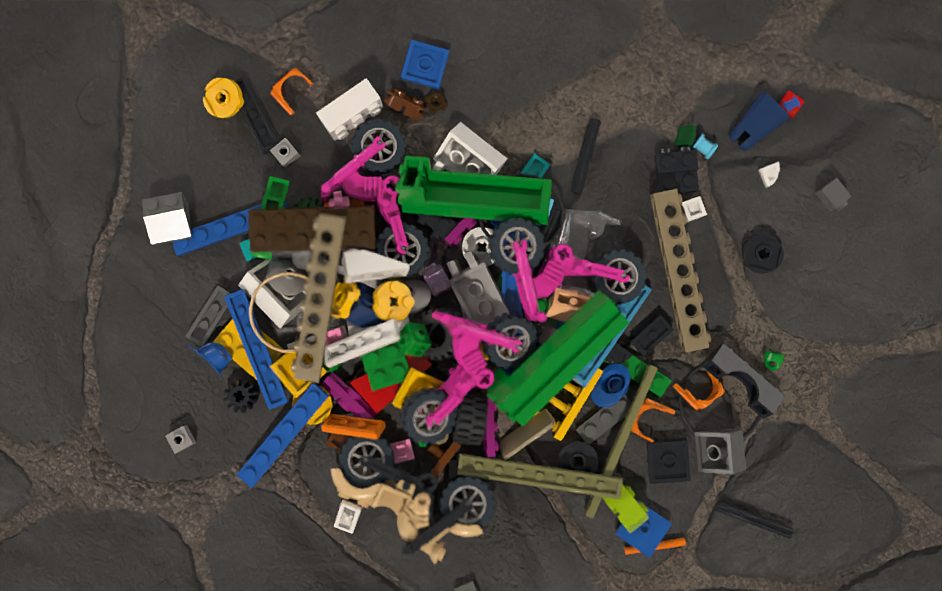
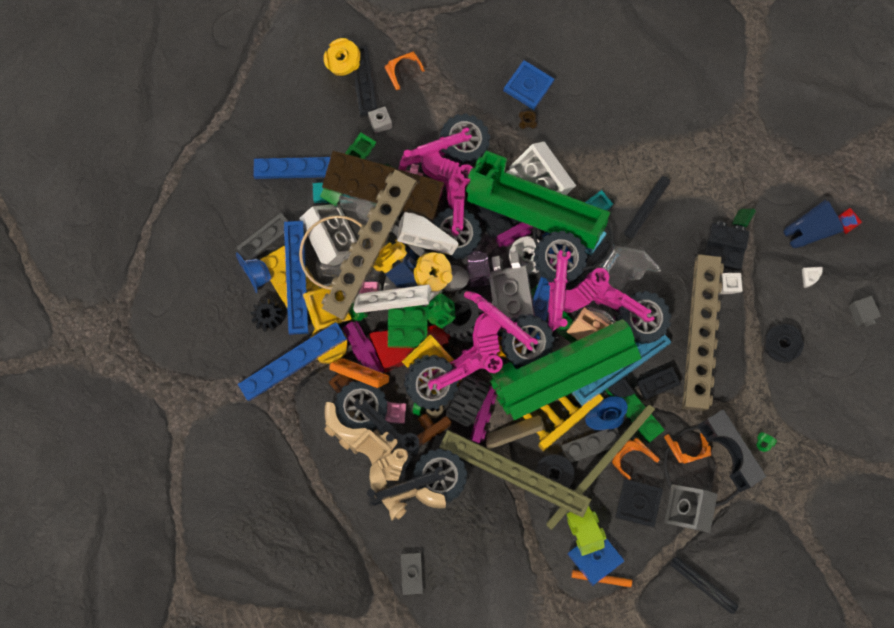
camera: 20 degrees right, 10 degrees down
(167, 218) = (257, 141): slope -> none
(187, 439) = (202, 341): light grey plate -> none
(286, 284) = (343, 228): light grey dish -> none
(348, 515) = (326, 453): white slope -> none
(350, 110) = (449, 100): white brick -> none
(399, 99) = (506, 116): reddish brown hinge -> none
(705, 146) = (758, 232): medium azure bush -> none

